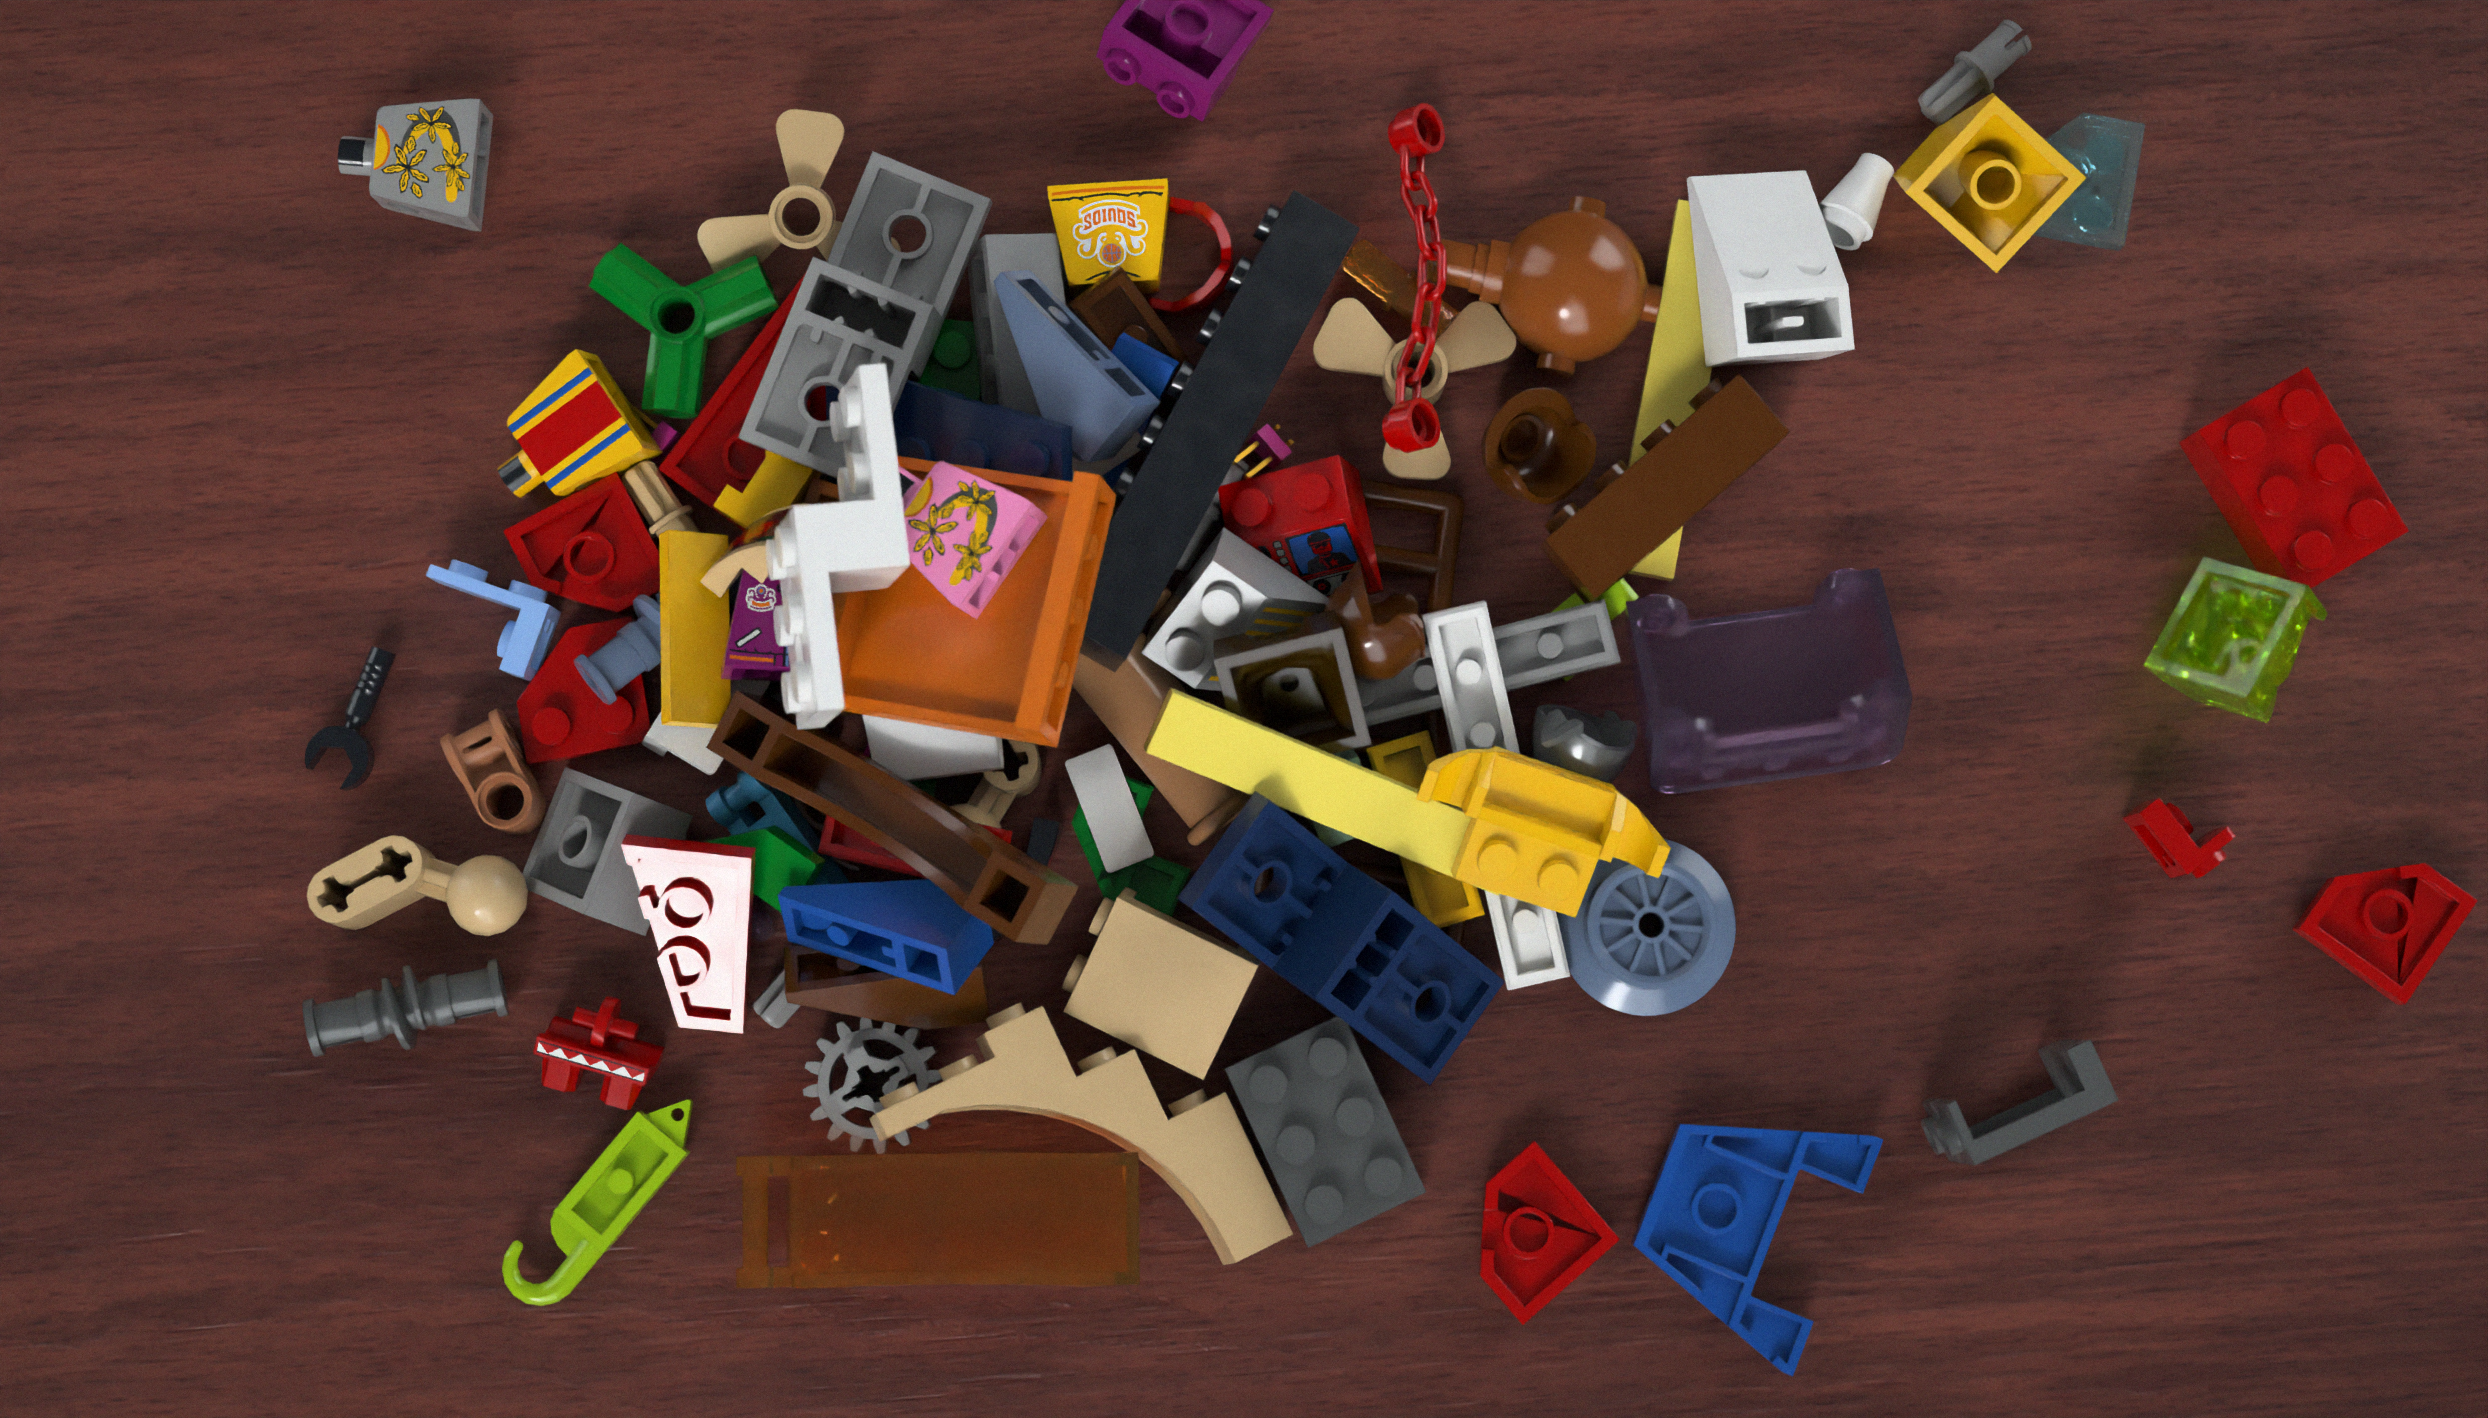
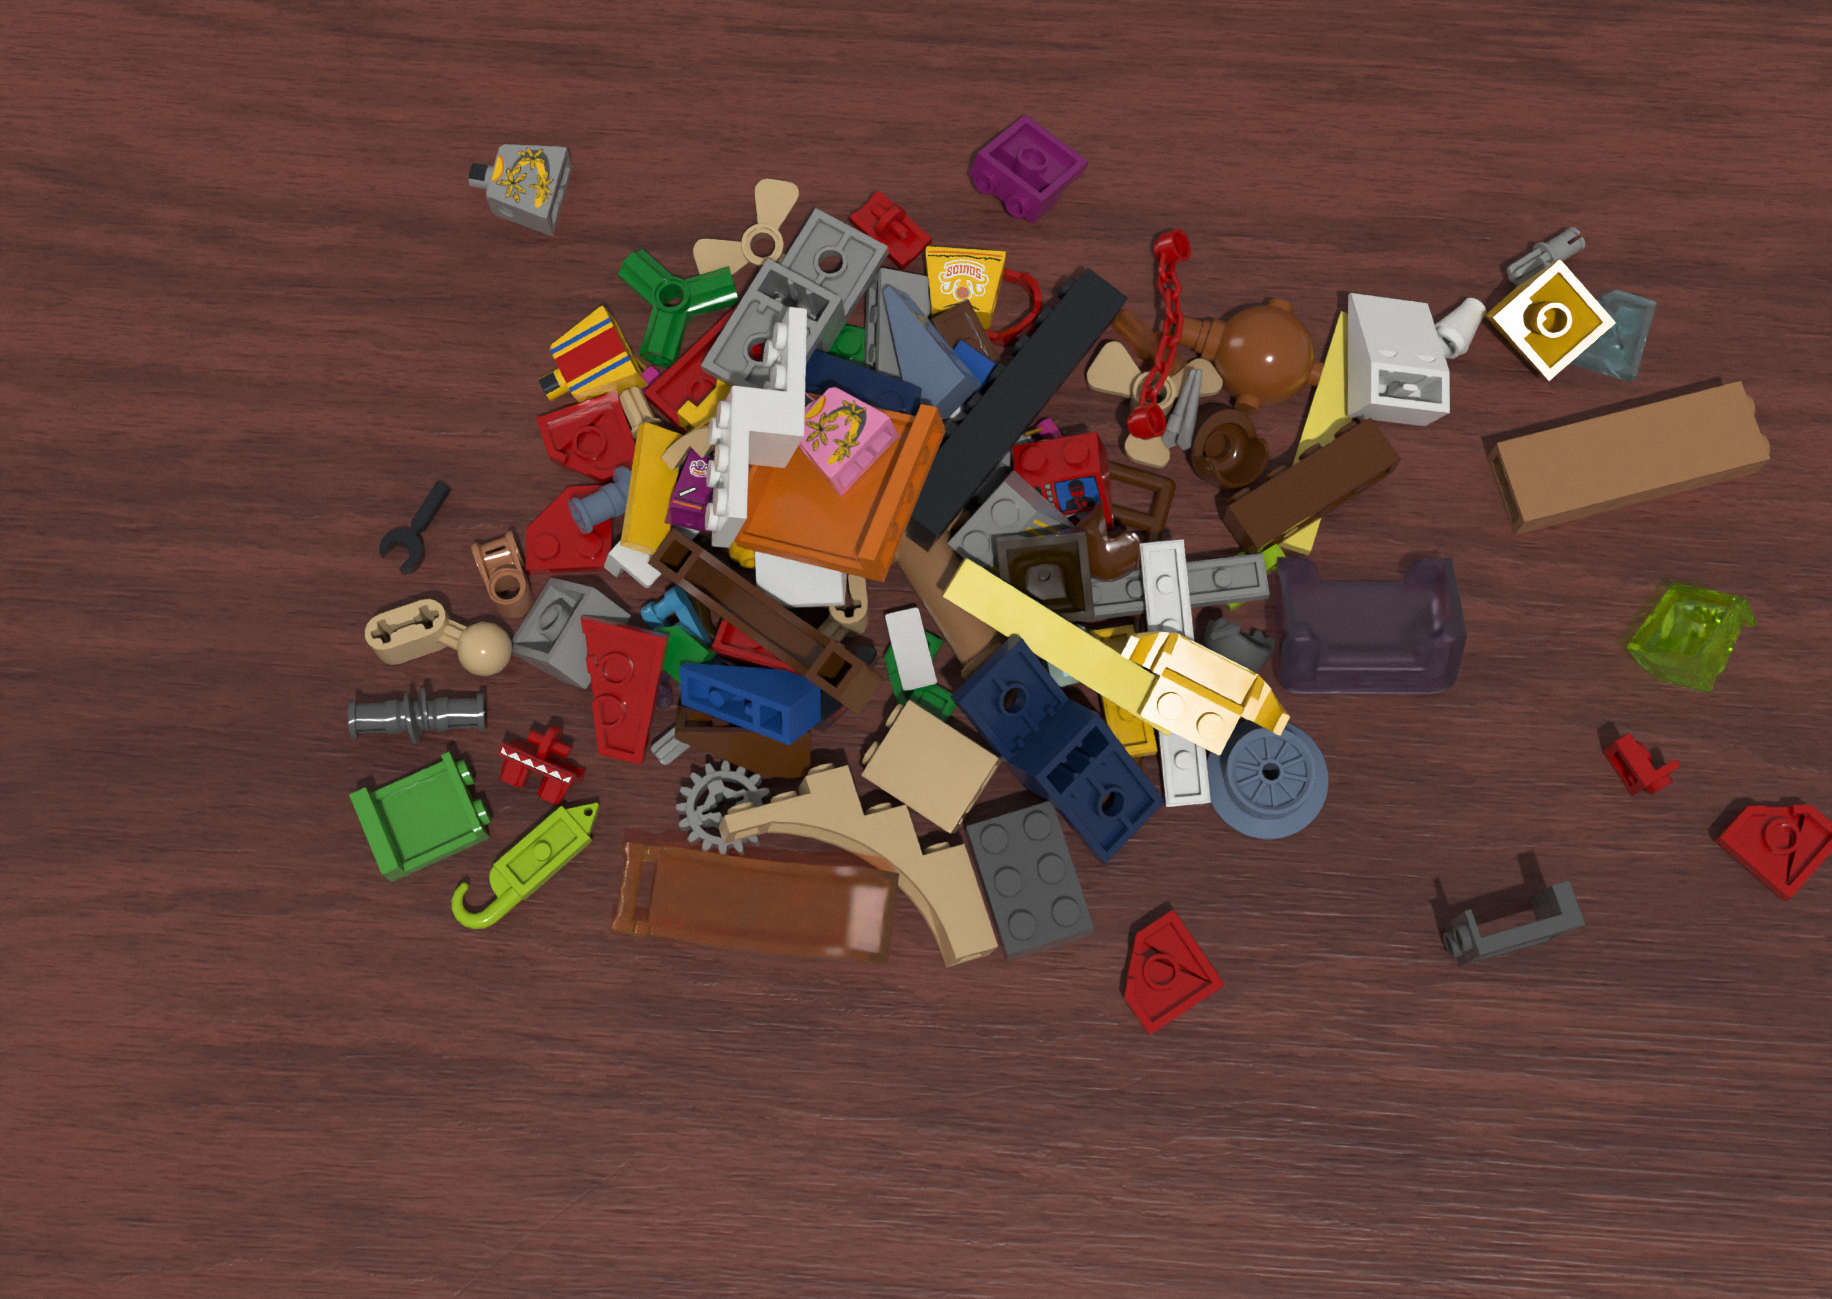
camera: 10 degrees right, 10 degrees down
(437, 1154) = (422, 818): none -> bright green panel
(522, 642) = (537, 490): light blue bracket -> none
(990, 163) = (892, 227): none -> red hips
(1463, 409) = (1182, 421): none -> light grey piece
(1720, 1210) = (1295, 978): blue wing -> none
(2124, 372) = (1628, 457): none -> medium nougat brick
(2294, 483) = (1739, 539): red brick -> none

